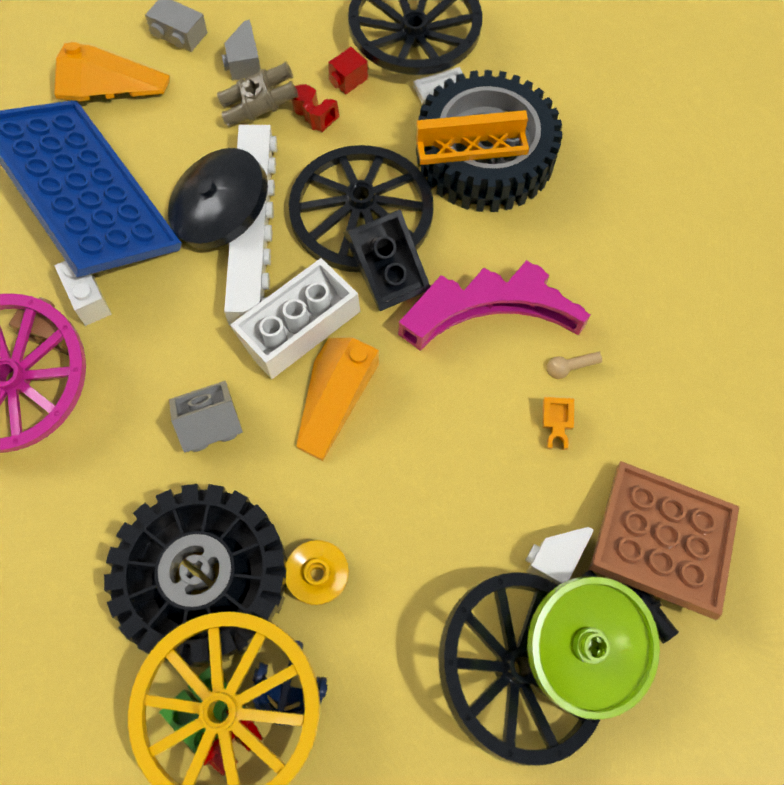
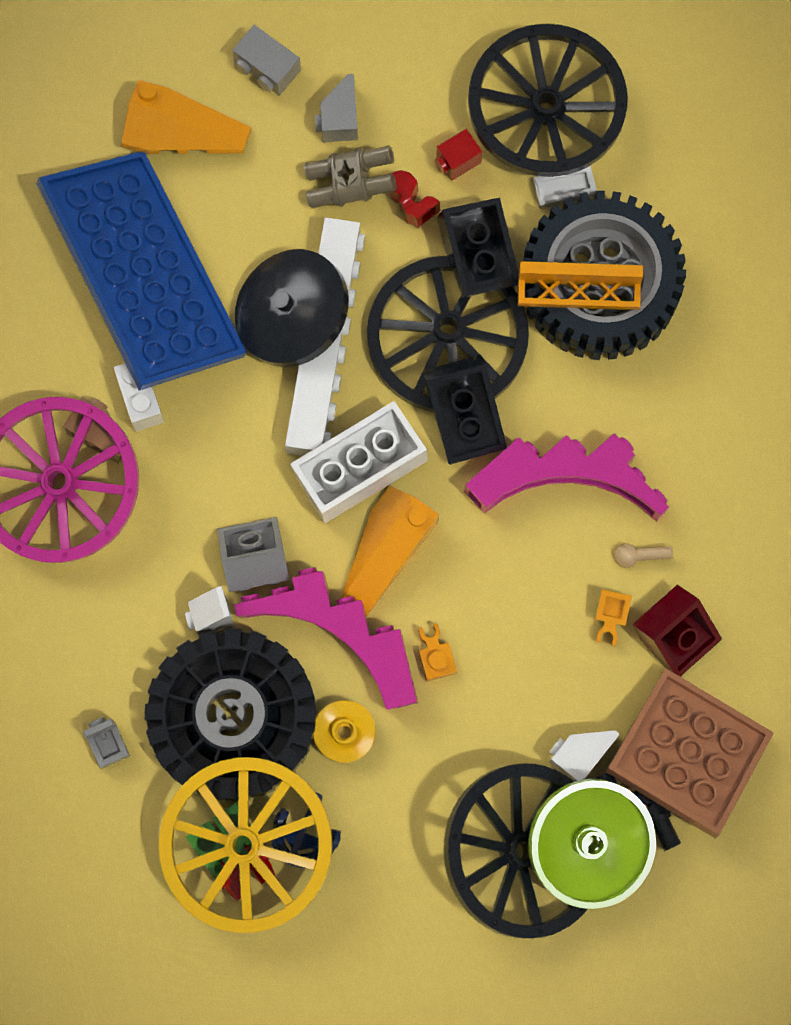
camera: 10 degrees right, 10 degrees up
(68, 623) = (106, 742): none -> light grey bracket
(165, 472) = (209, 612): none -> white slope
(267, 452) = (311, 602): none -> dark pink arch
(376, 129) = (479, 247): none -> black slope
(397, 486) = (437, 657): none -> light orange plate
(623, 424) = (677, 630): none -> dark red slope

